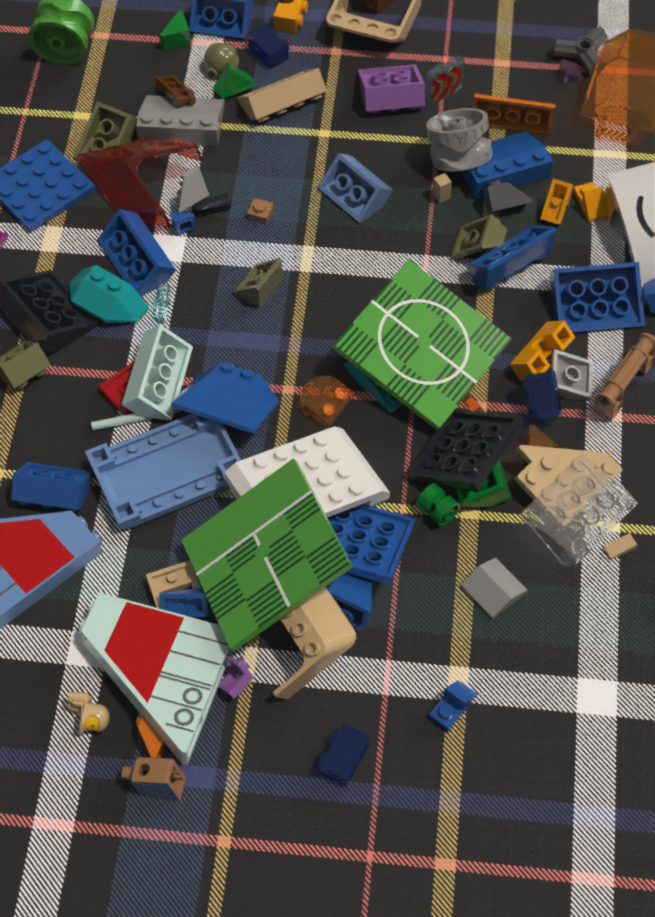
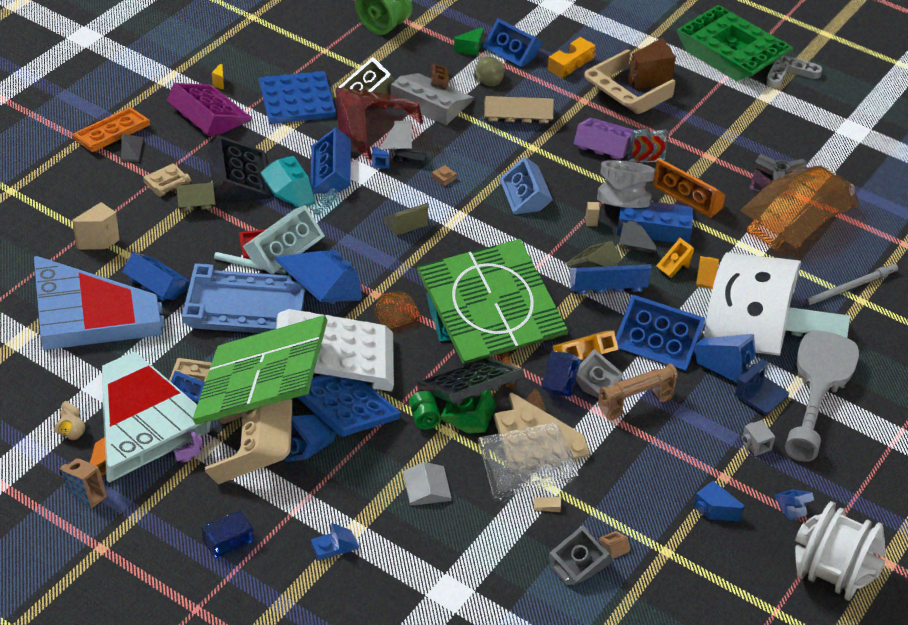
camera: 25 degrees right, 15 degrees down
(232, 82) = (487, 87): green slope -> none
(268, 45) = (532, 75): clear blue brick -> none

